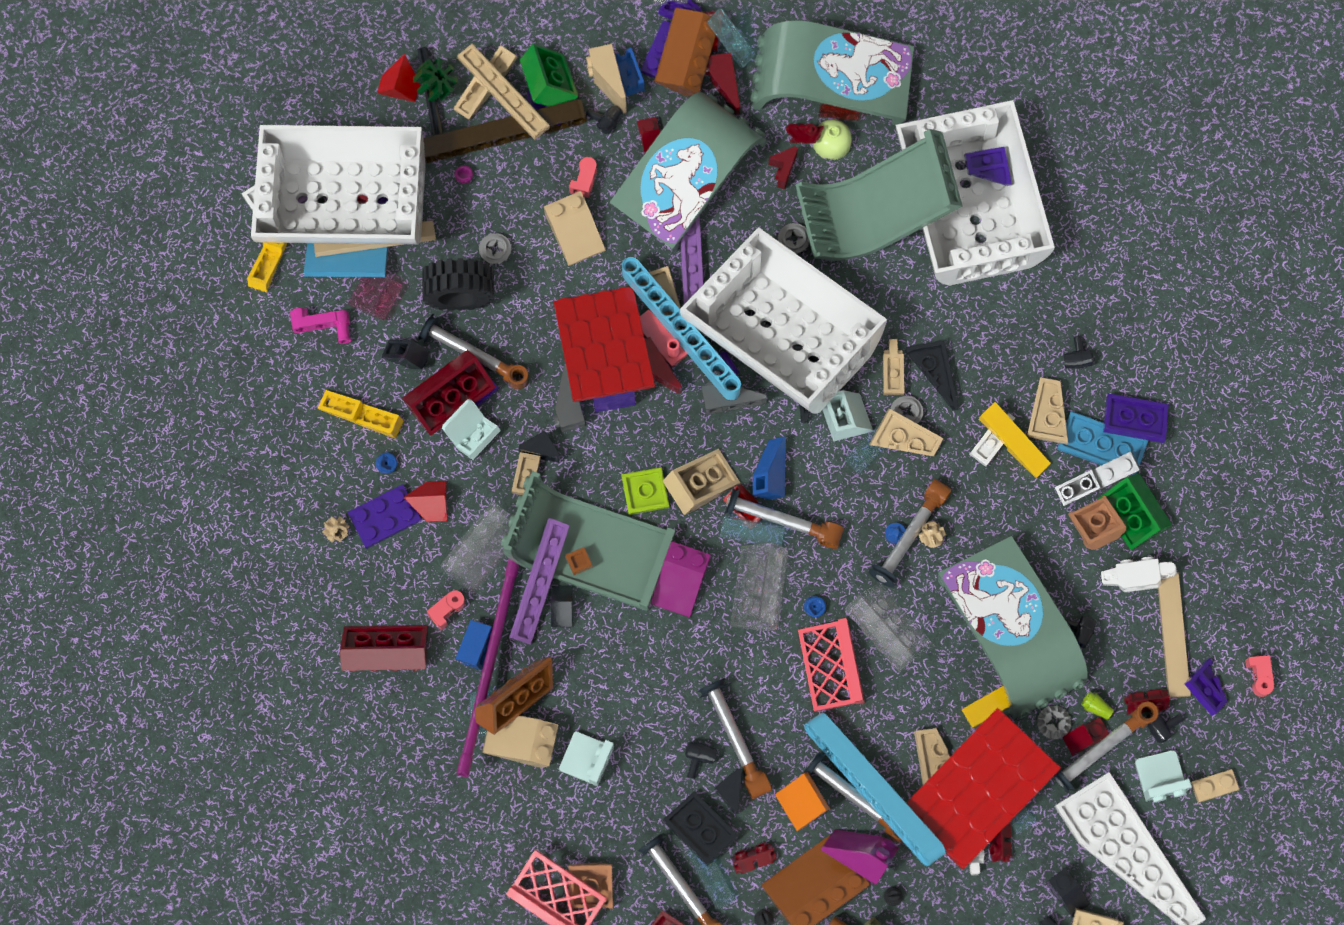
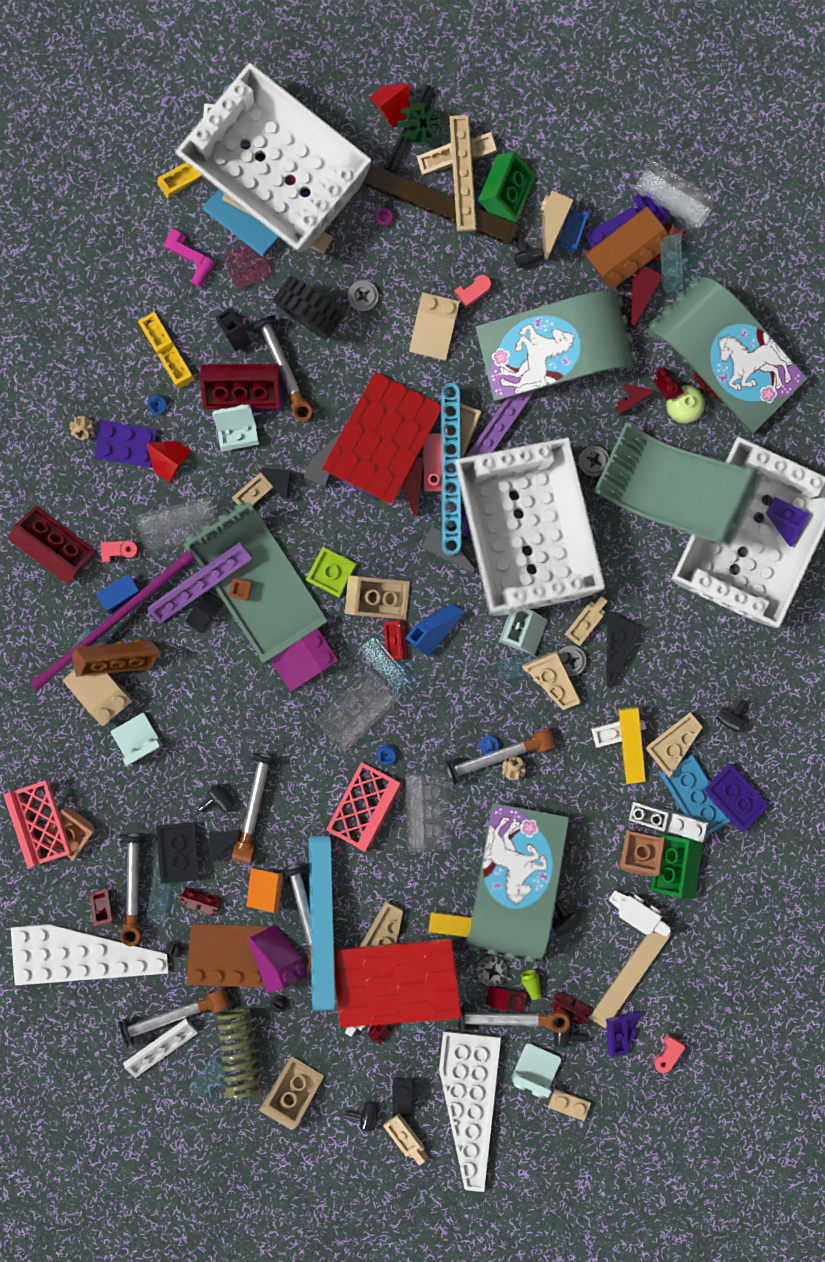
camera: 40 degrees right, 15 degrees up
(648, 132) = (550, 292): dark red slope -> none
(827, 533) = (436, 706): piece -> none

